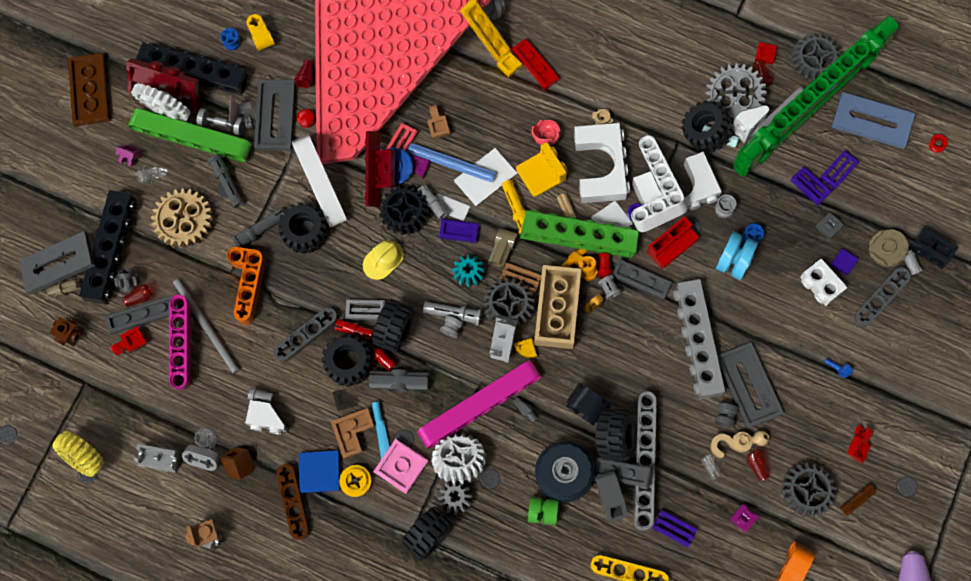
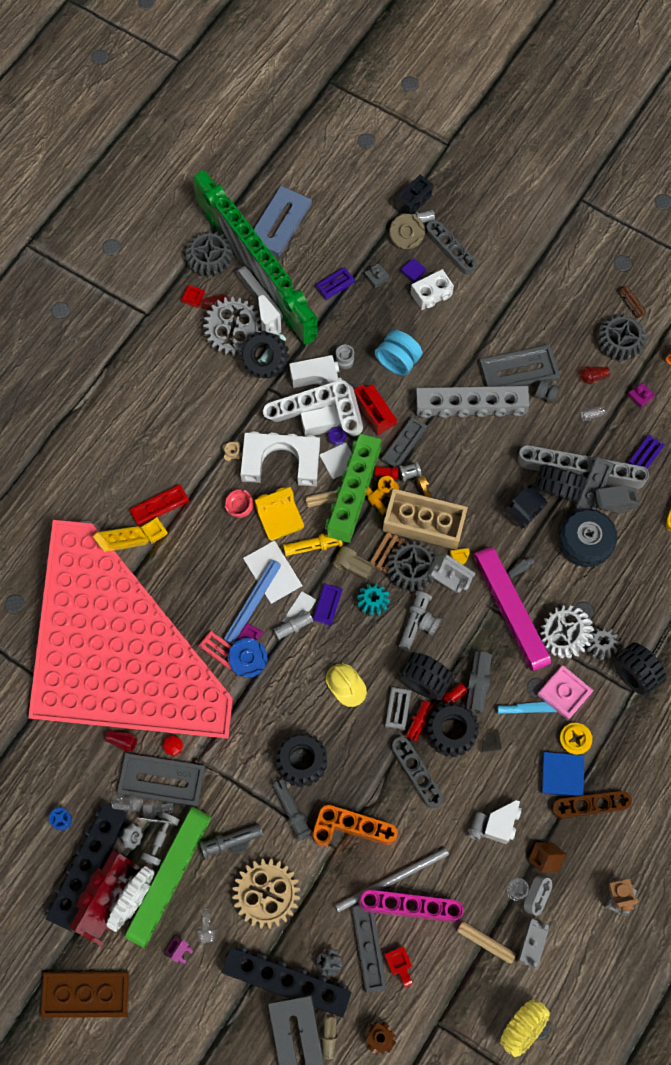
camera: 90 degrees left, 5 degrees down
(138, 295) = (348, 951): clear red cone -> none
(156, 416) = (486, 942): none -> tan axle
(220, 98) = (131, 836): none -> light grey piece
(248, 87) = (130, 804): none -> clear piece
(260, 34) = (64, 784): yellow piece -> none
(319, 180) = (245, 734): white beam -> none
(347, 430) = (525, 741): medium nougat plate -> none
(379, 169) = (251, 669): dark red bracket -> none
(403, 194) = (290, 652): black gear -> none
(437, 125) = (209, 608): medium nougat plate -> none
(543, 510) = (622, 563): bright green wheel -> none
(740, 442) = (572, 385): tan piece -> none
(753, 230) = (374, 335): blue wheel -> none
(829, 181) = (317, 260): dark purple tile -> none
(843, 371) = (516, 290): blue hand -> none
(859, 446) = (587, 291): red plate -> none
(938, 137) = (310, 178): red bush -> none

